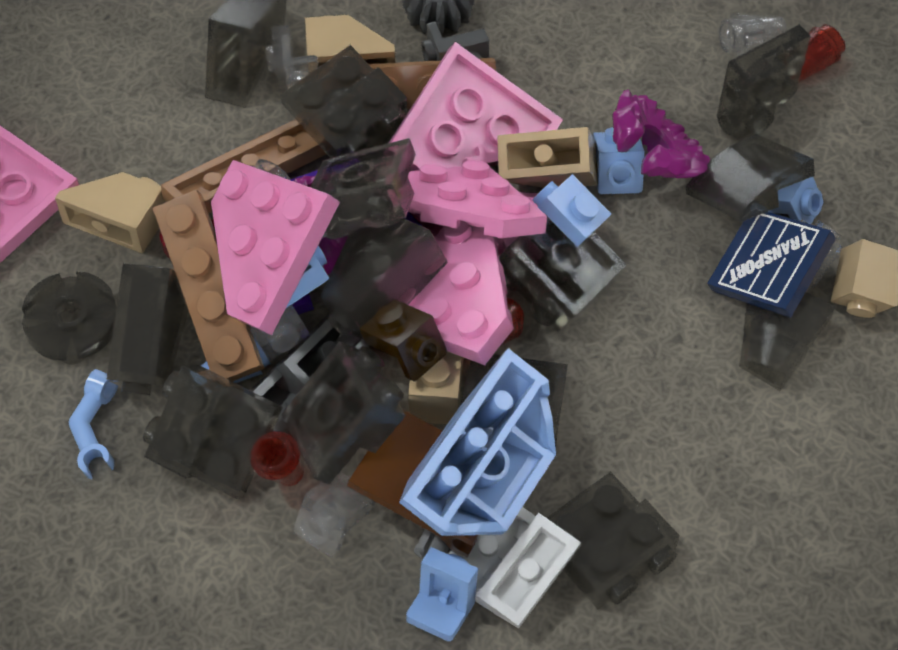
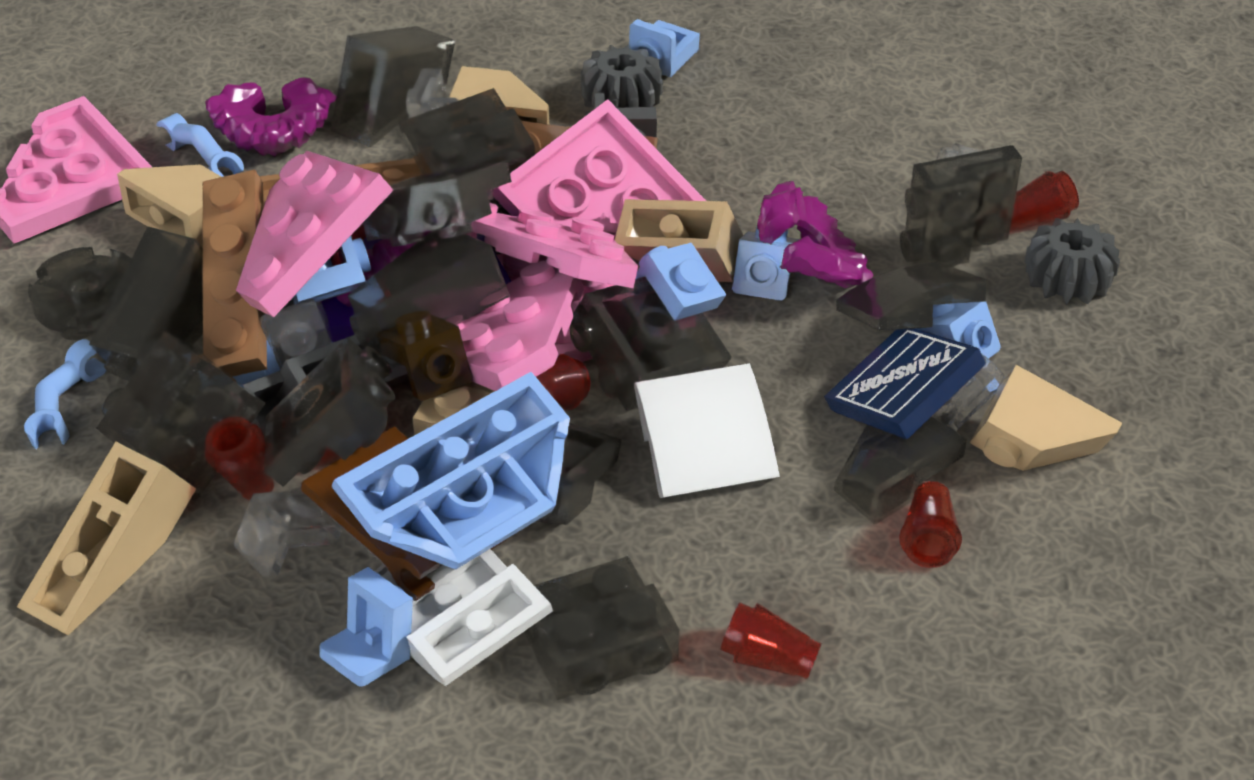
camera: 15 degrees right, 15 degrees down
(106, 139) = (201, 139): none -> light blue arm
(159, 117) = (242, 118): none -> magenta piece
(196, 561) = (107, 537): none -> tan slope
(632, 342) = (706, 430): none -> white slope
(741, 523) = (769, 642): none -> clear red cone
(828, 389) = (930, 527): none -> clear red cone
(857, 109) = (1072, 260): none -> dark grey gear

